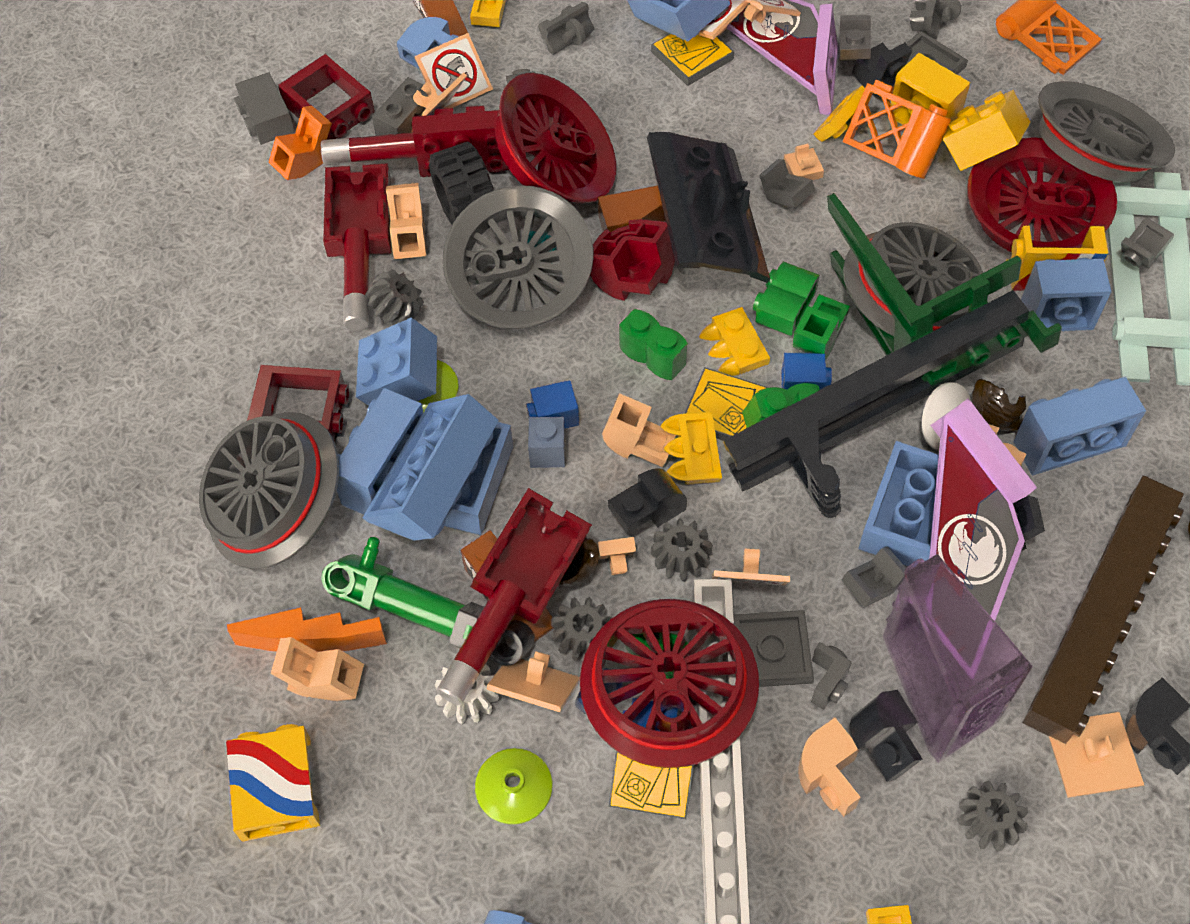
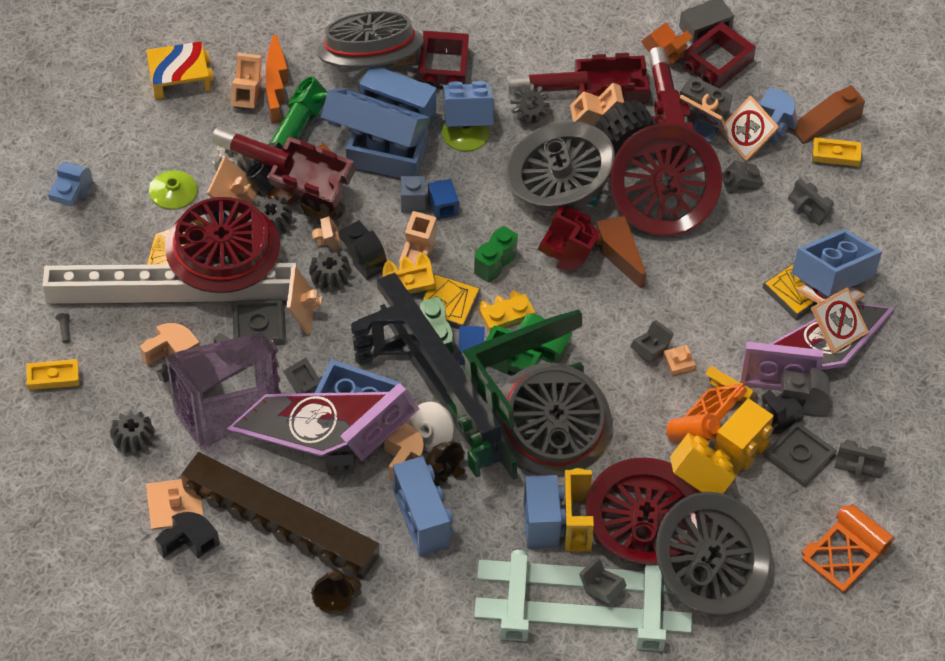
camera: 85 degrees right, 5 degrees down
(706, 205) = (619, 280): black hinge -> none

